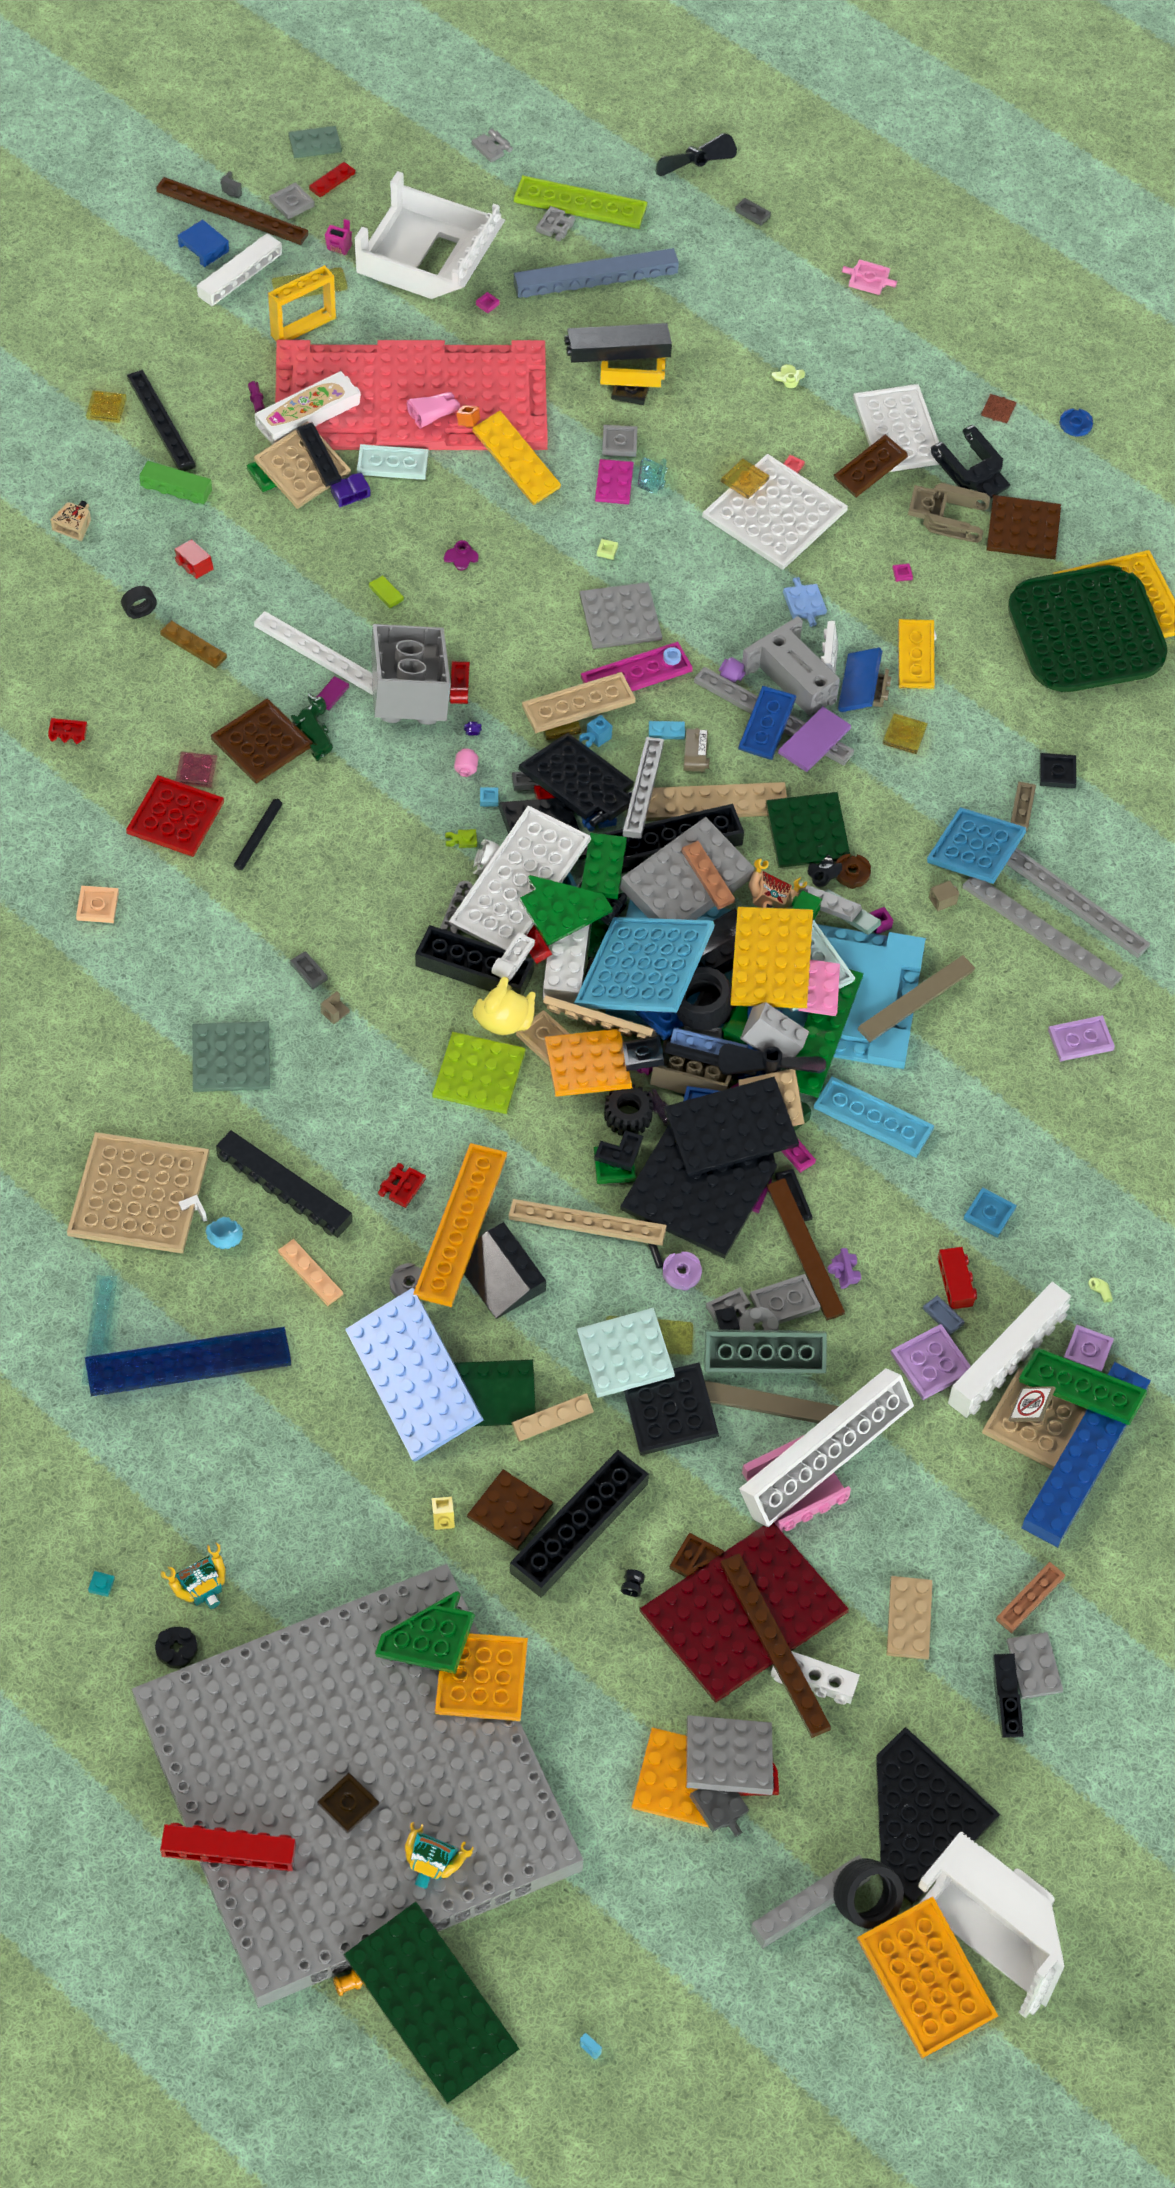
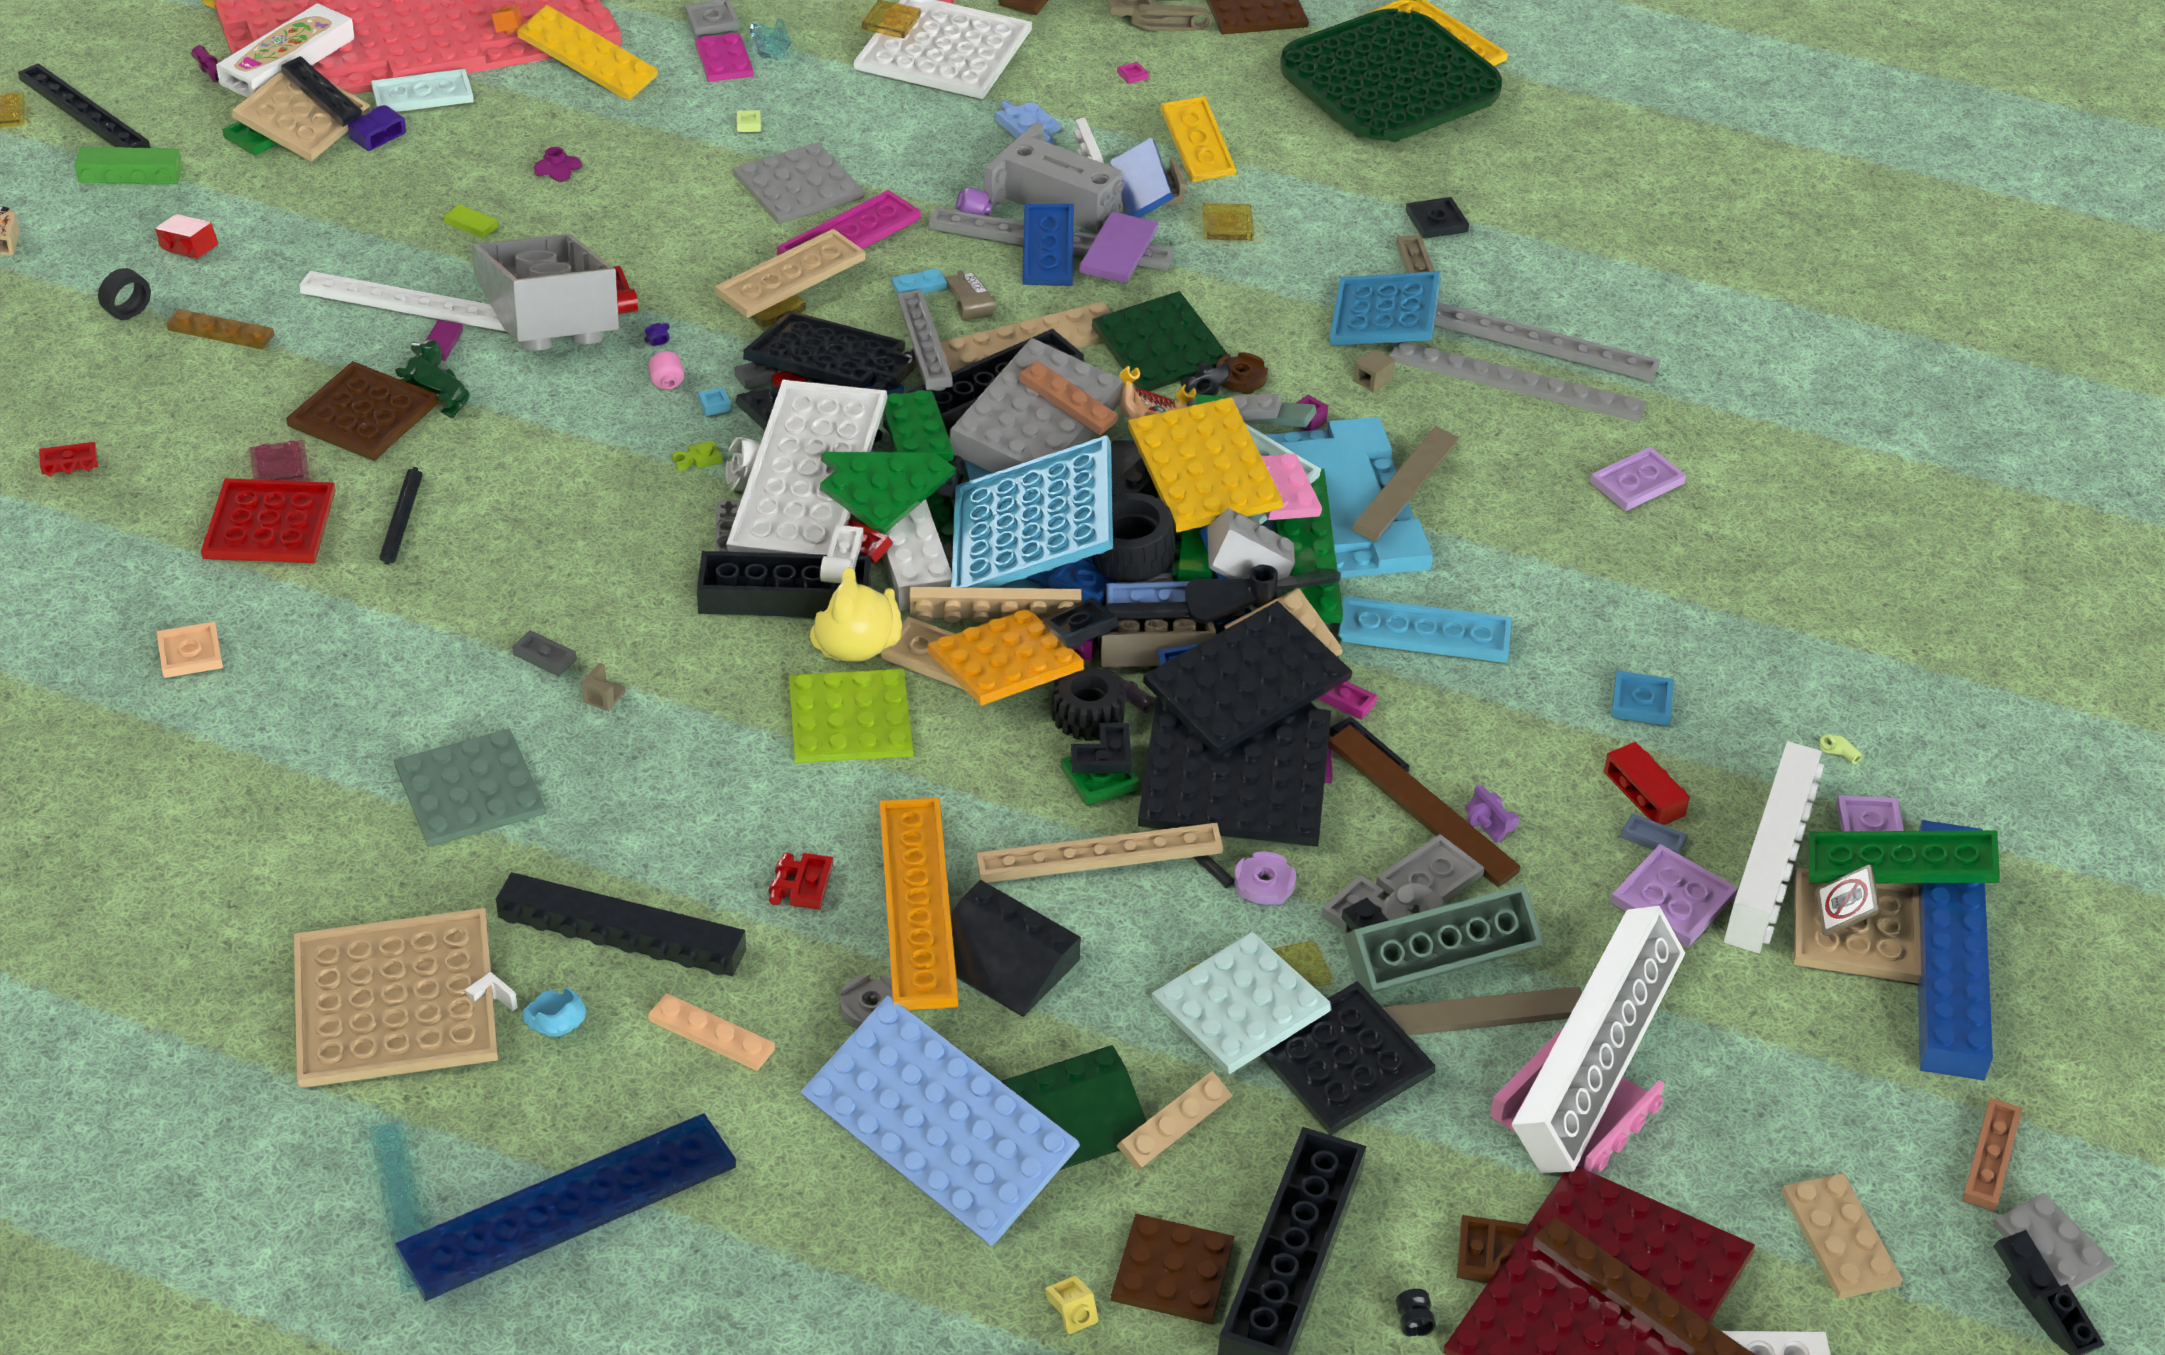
camera: 20 degrees left, 15 degrees down
(428, 409) = (451, 23): bright pink piece -> none
(598, 732) = (830, 300): dark azure brick -> none
(672, 656) = (889, 203): light blue tile -> none

